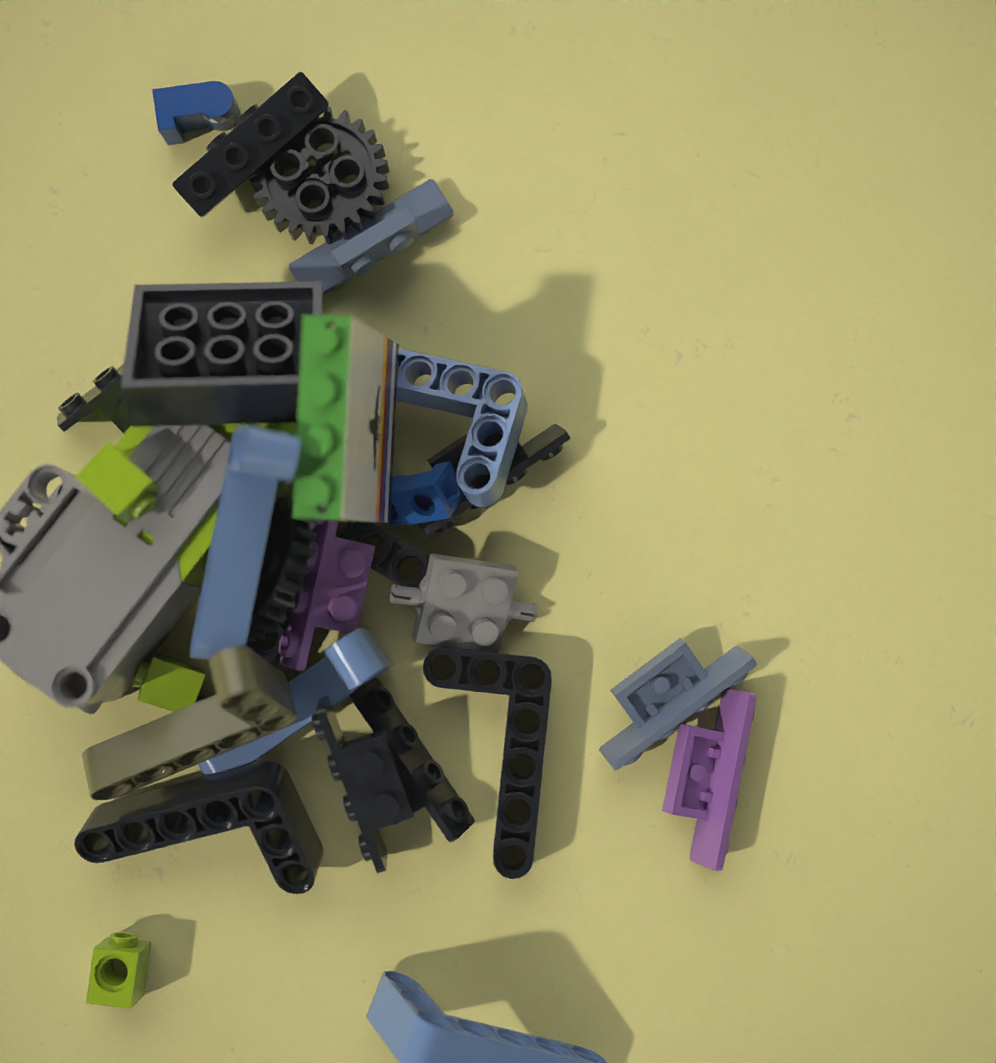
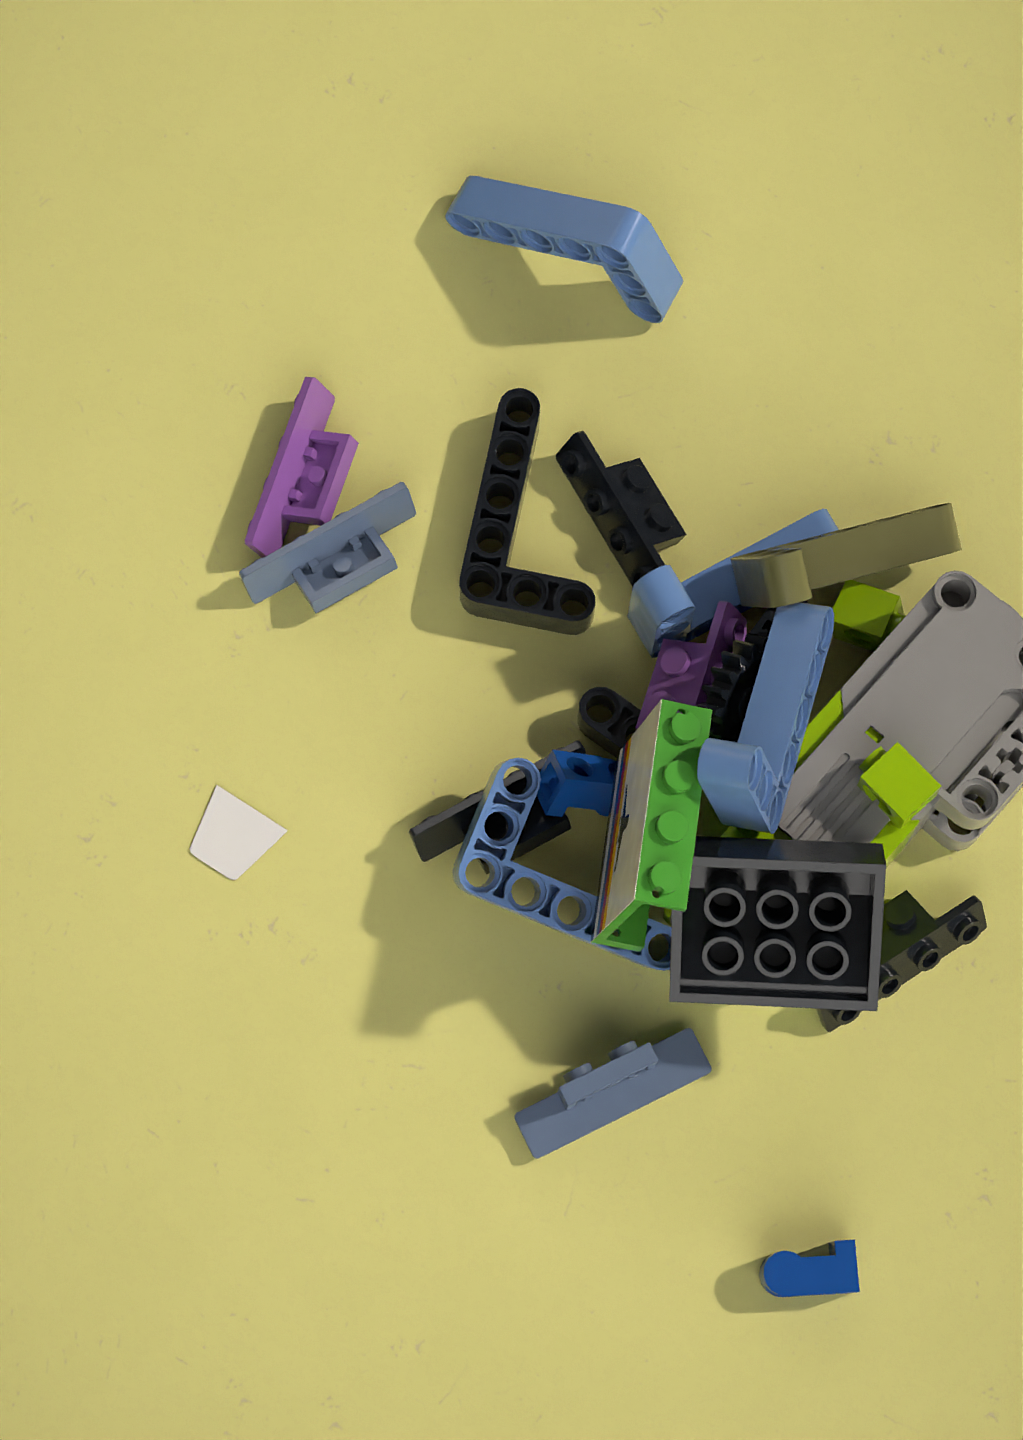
camera: 175 degrees left, 10 degrees down
(108, 987) = (937, 329): lime brick -> none
(237, 798) = (832, 484): black beam -> none
(251, 144) = (746, 1210): black bracket -> none
(342, 202) = (690, 1213): black gear -> none
(371, 781) = (660, 497): black bracket -> none
(464, 603) = (544, 667): light grey plate -> none
(724, 432) = (233, 835): none -> white sticker

